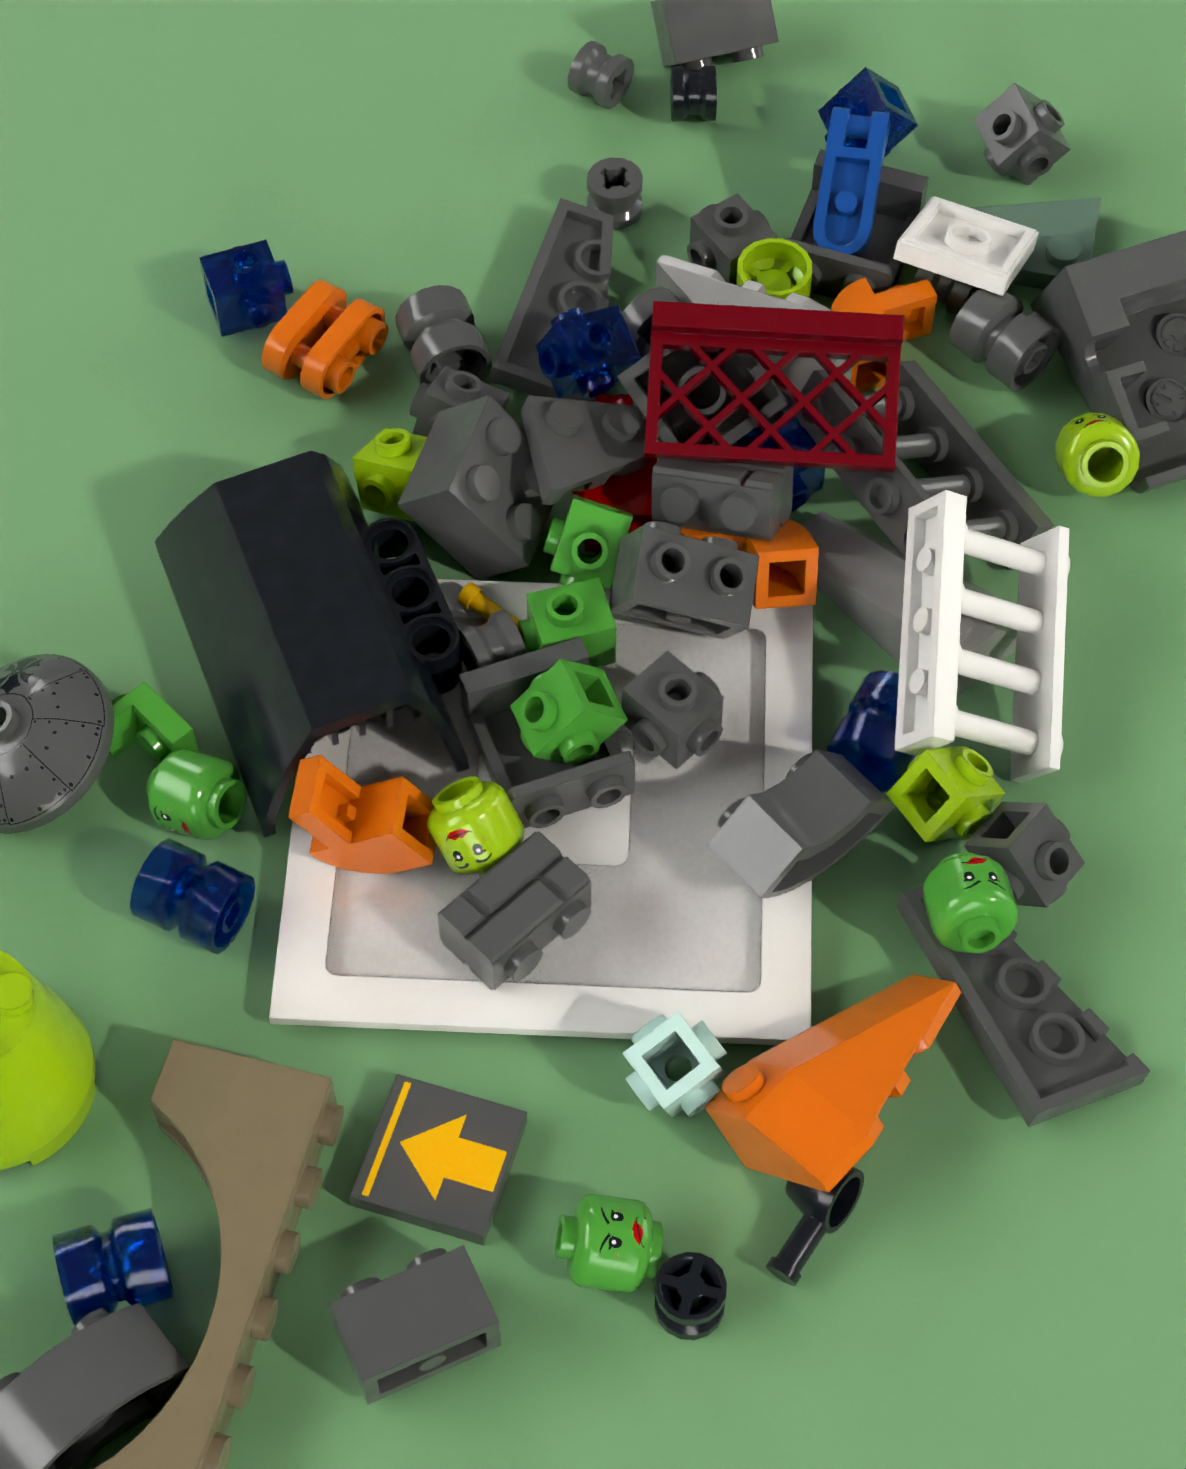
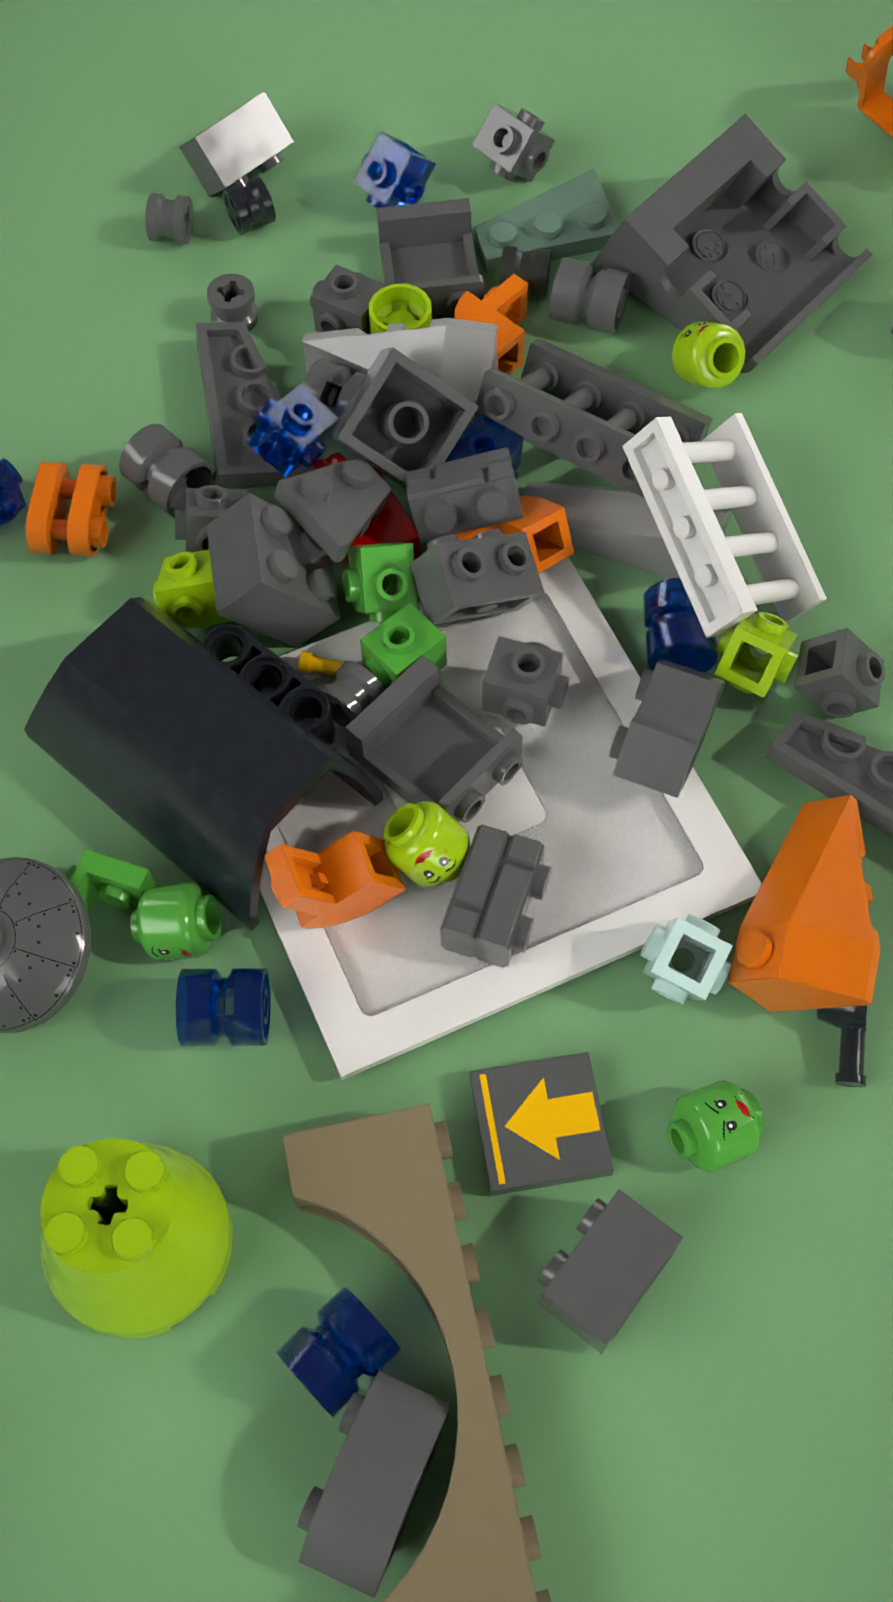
camera: 25 degrees left, 5 degrees up
(568, 713) = (448, 720): bright green brick -> none
(690, 1278) = (804, 1124): black wheel -> none
(774, 333) = (456, 349): dark red fence -> none
(850, 181) = (416, 221): blue plate -> none
(966, 245) = (529, 236): white tile -> none
(969, 900) = (831, 729): bright green head -> none

